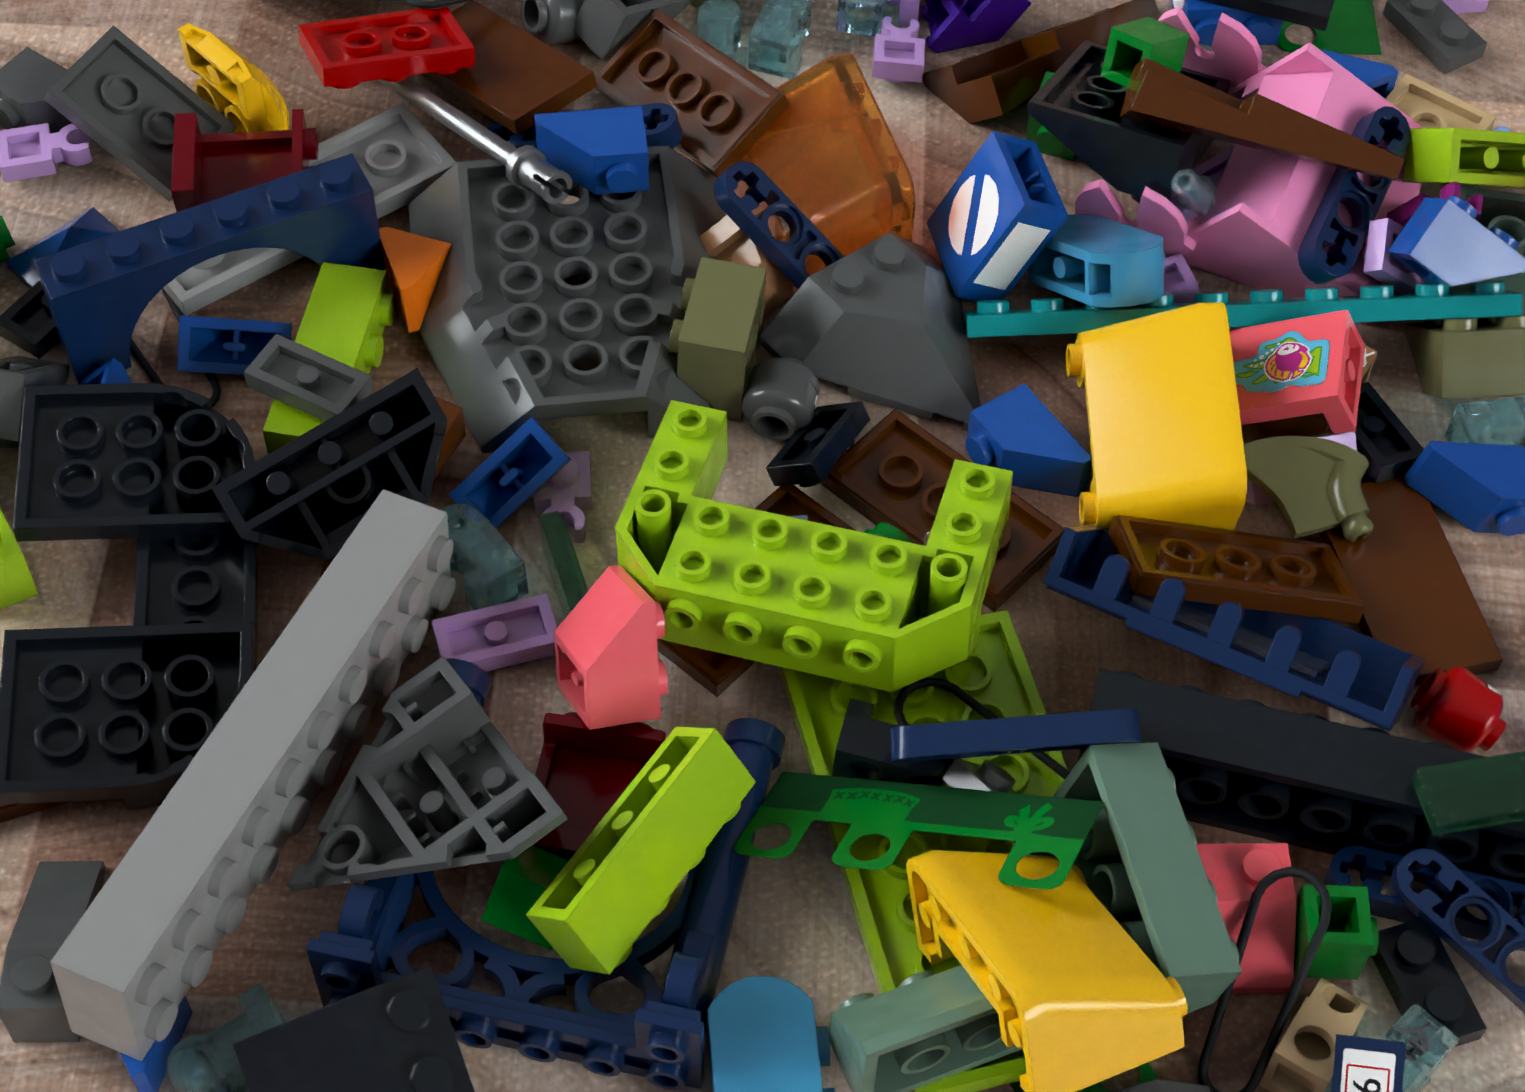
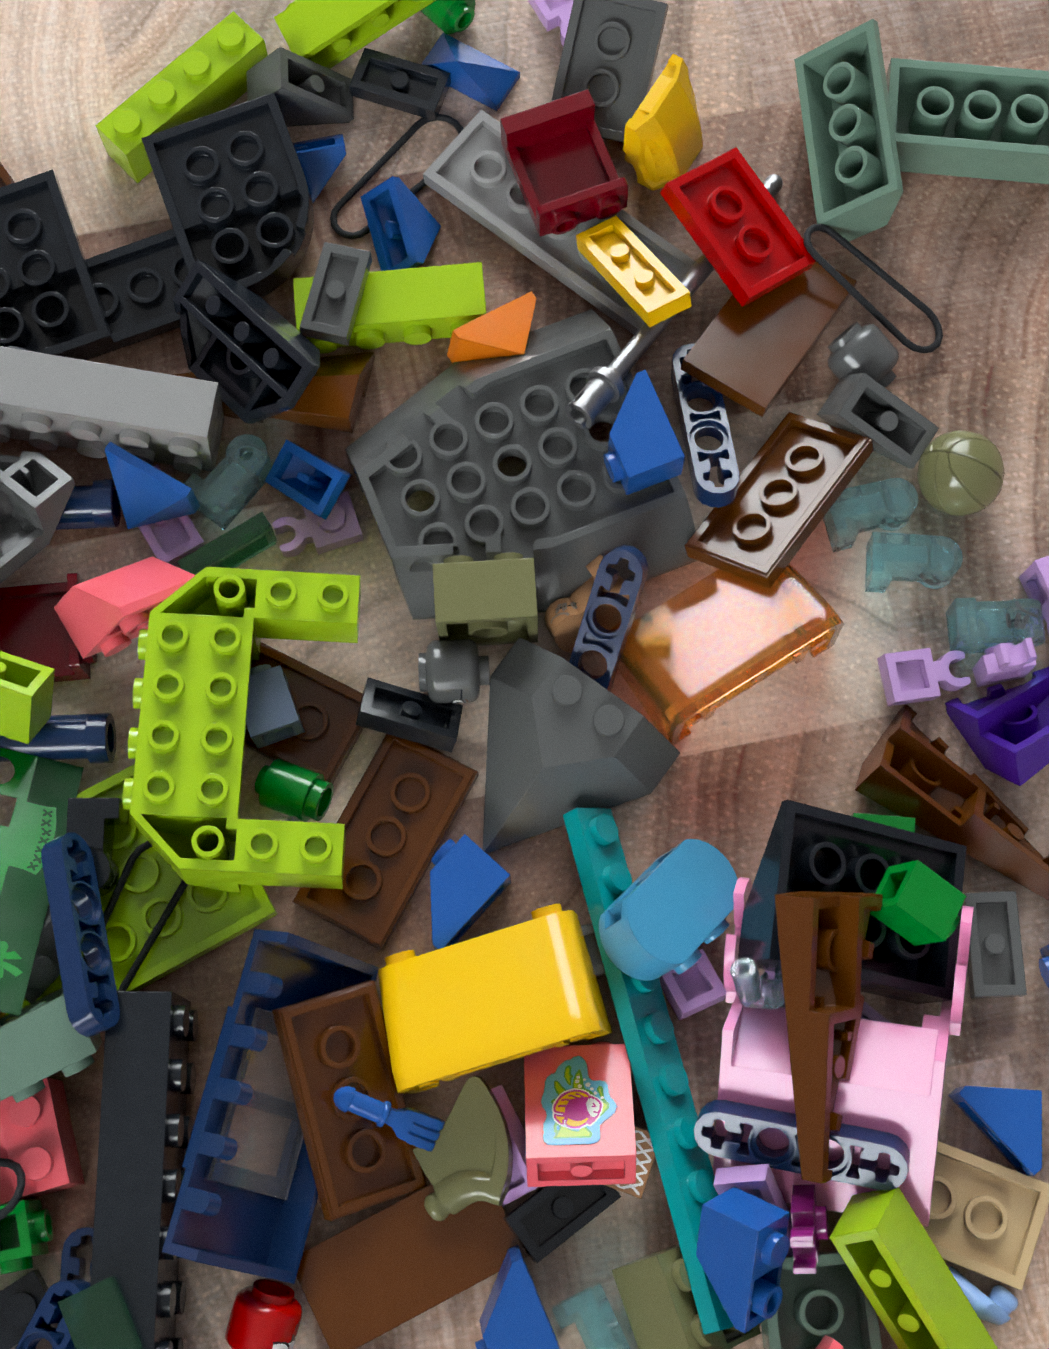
camera: 80 degrees right, 20 degrees up
(108, 282) = (382, 115): dark blue arch -> none
(406, 124) = (633, 271): none -> yellow plate
(465, 620) = (147, 492): none -> blue slope
(996, 218) = (688, 808): blue brick -> none
(1271, 519) = (408, 1123): none -> blue piece

